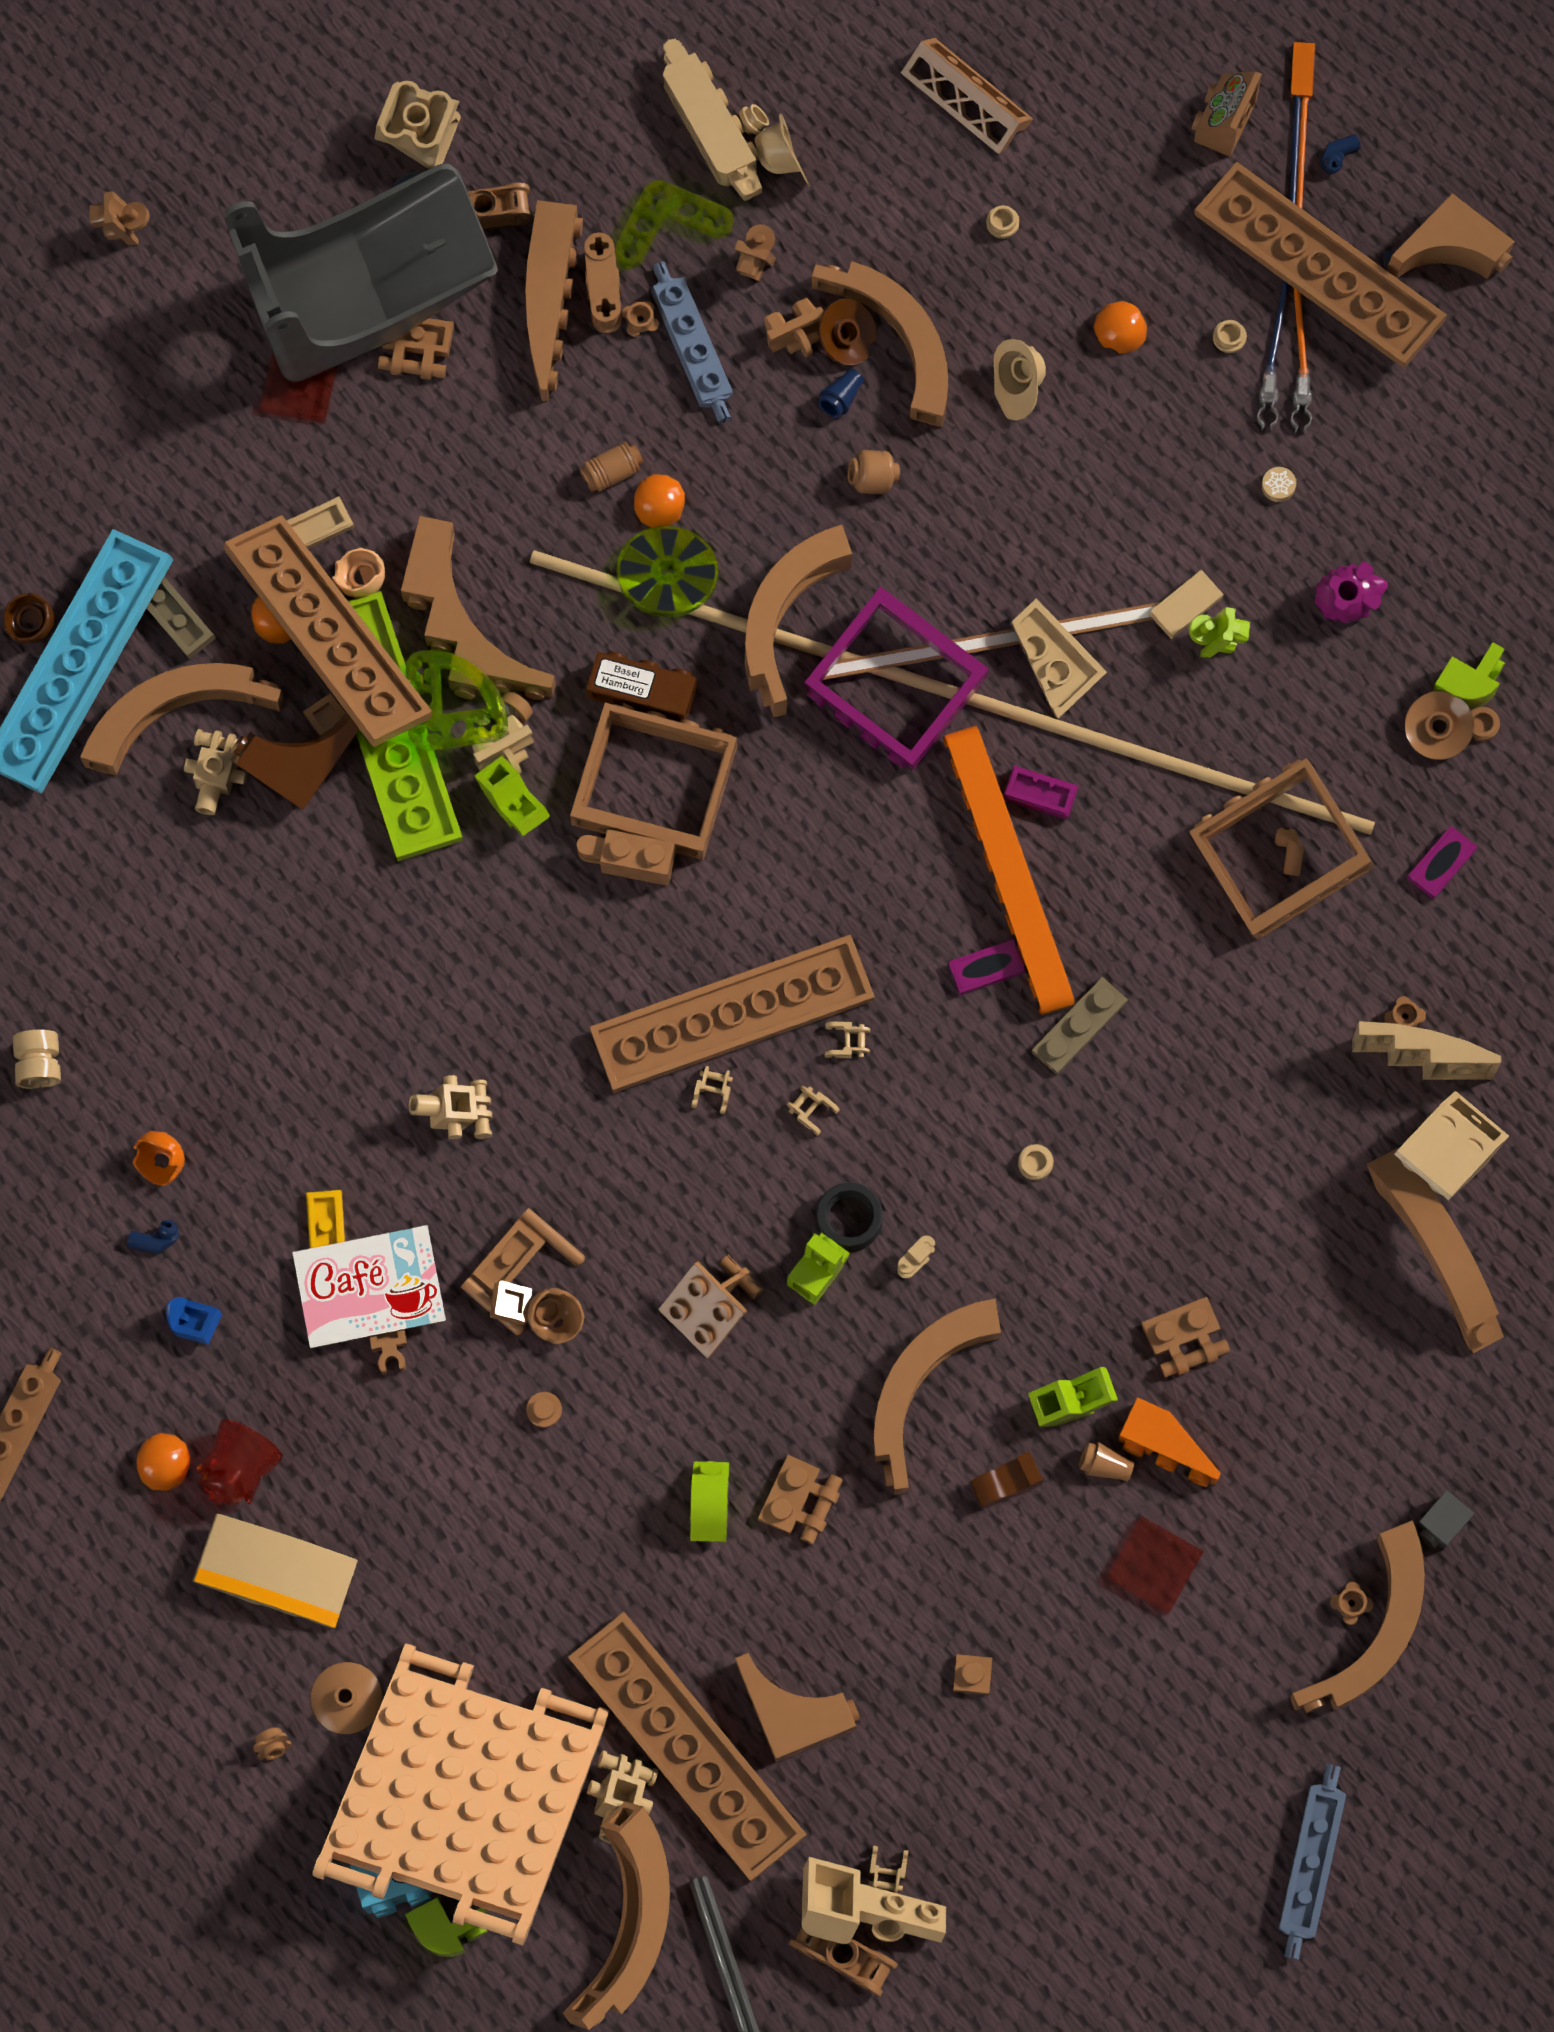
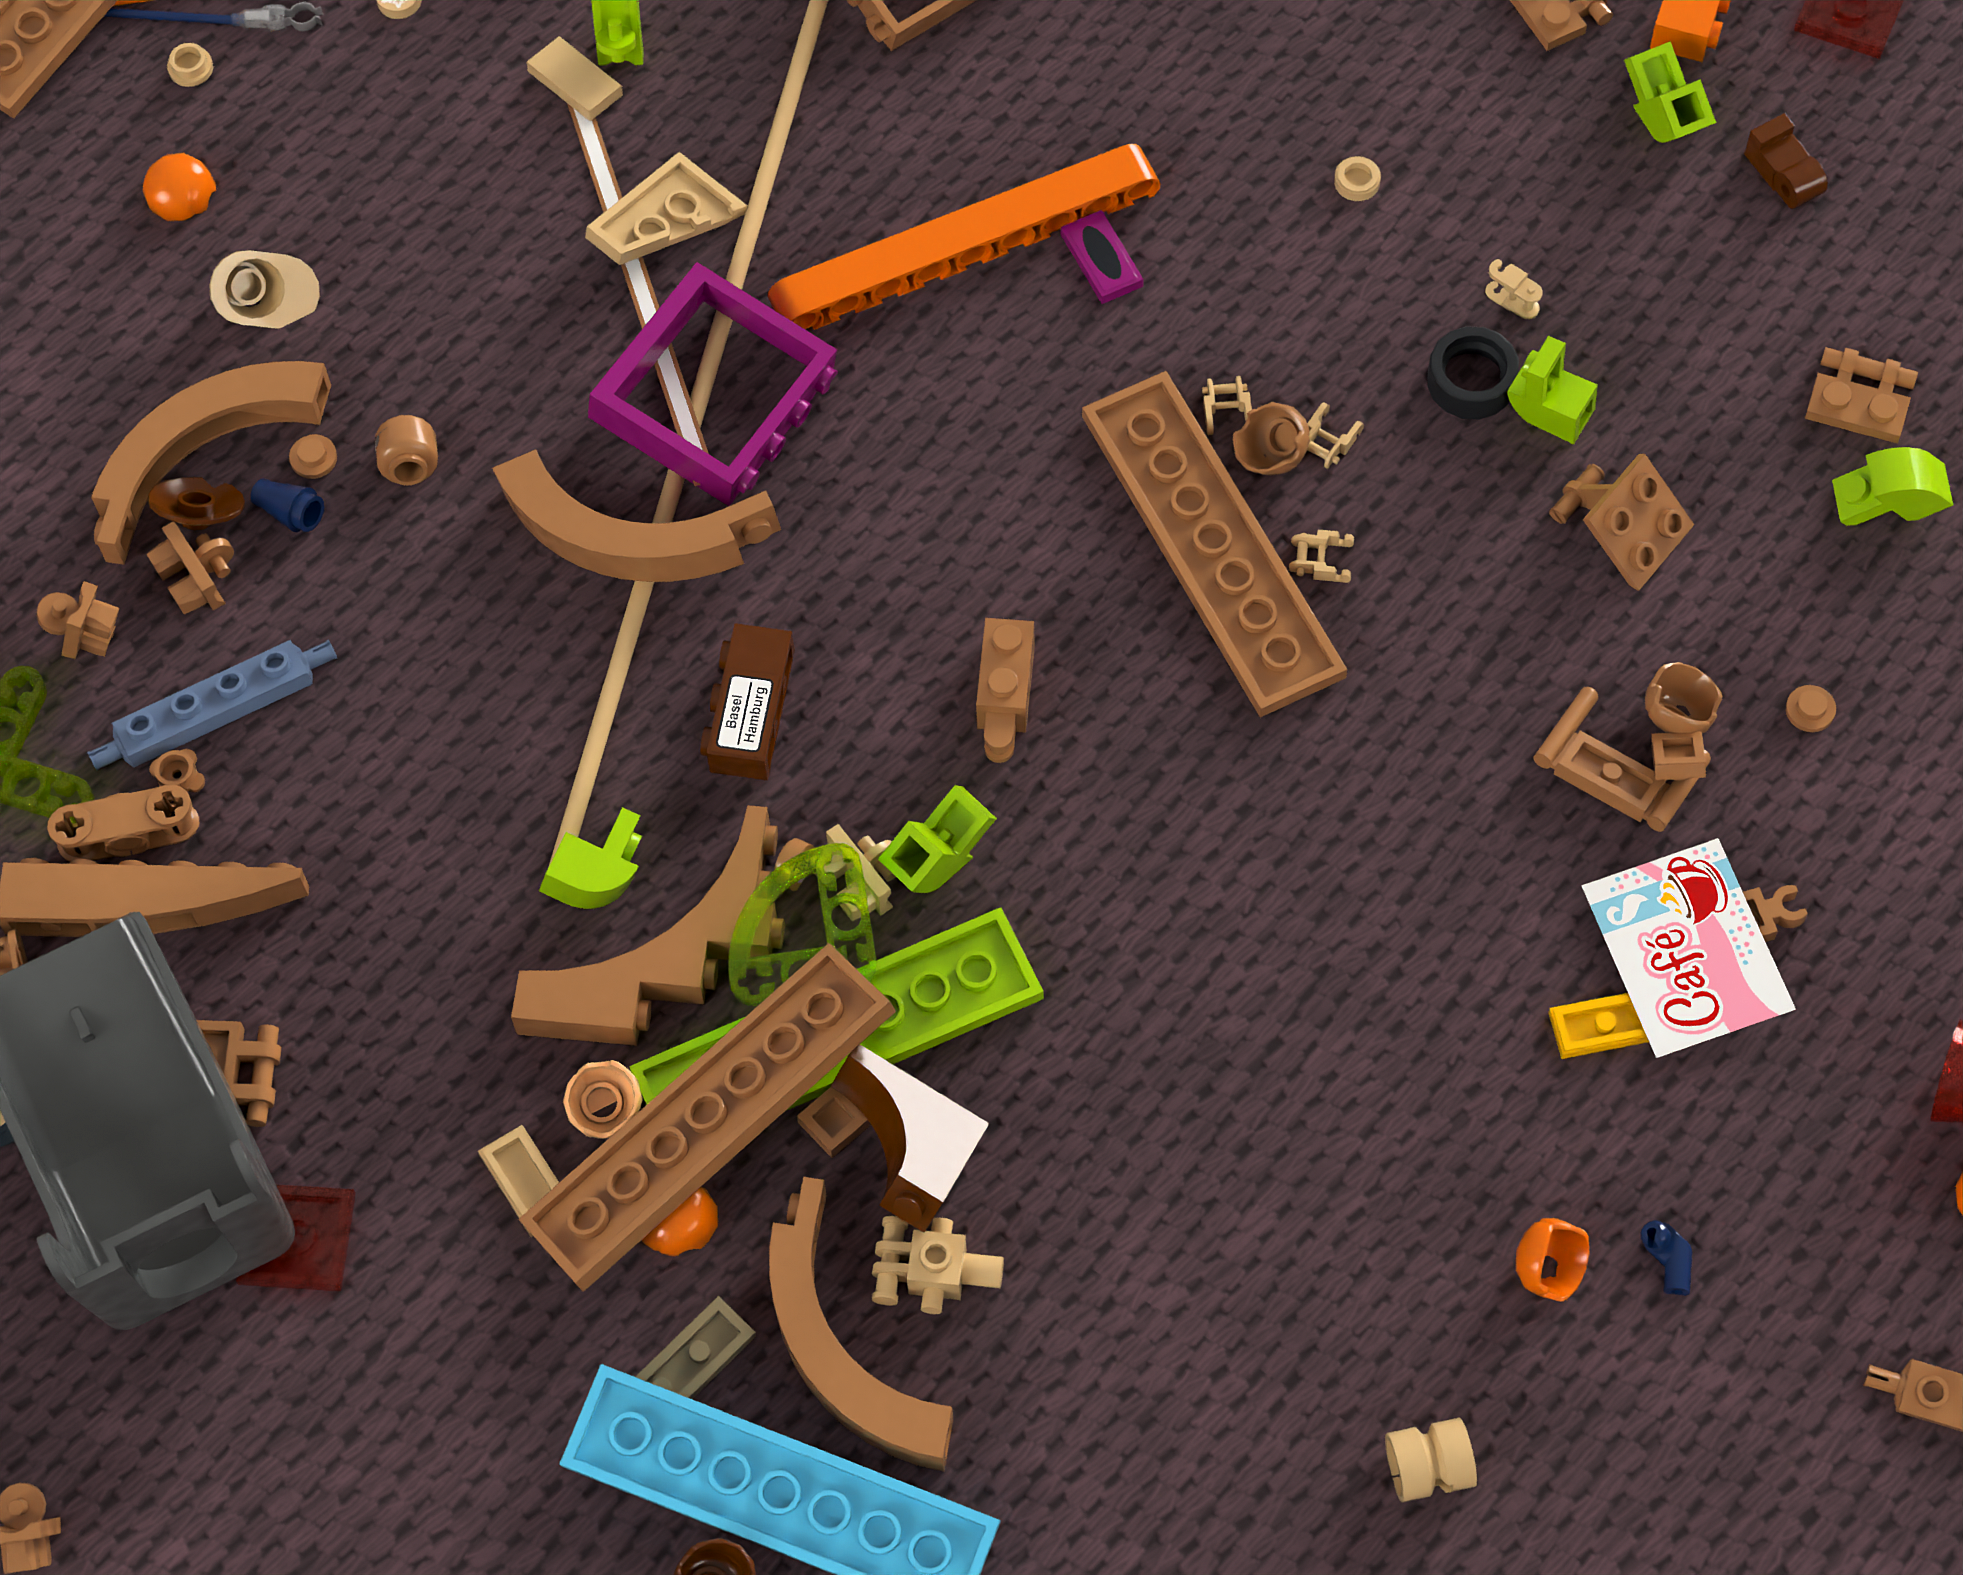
camera: 95 degrees left, 10 degrees down
(192, 1319) = (1784, 1180): blue plate -> none
(455, 1107) = (1408, 864): tan piece -> none
(520, 575) = (592, 875): none -> lime brick
(611, 467) = (413, 781): medium nougat head -> none
(654, 724) = (894, 591): medium nougat window -> none
(659, 500) = (460, 717): orange hair -> none
(669, 594) = (578, 724): clear neon green piece -> none
(799, 1051) = (1272, 431): none -> medium nougat hair
(879, 411) = (313, 456): none -> medium nougat plate
(936, 1343) = (1673, 282): medium nougat arch -> none
(1002, 222) = (23, 337): tan plate -> none
(1040, 792) = (852, 213): magenta plate -> none
(1079, 1026) = (1167, 147): dark tan plate -> none
(1104, 1462) = (1738, 68): medium nougat cone -> none

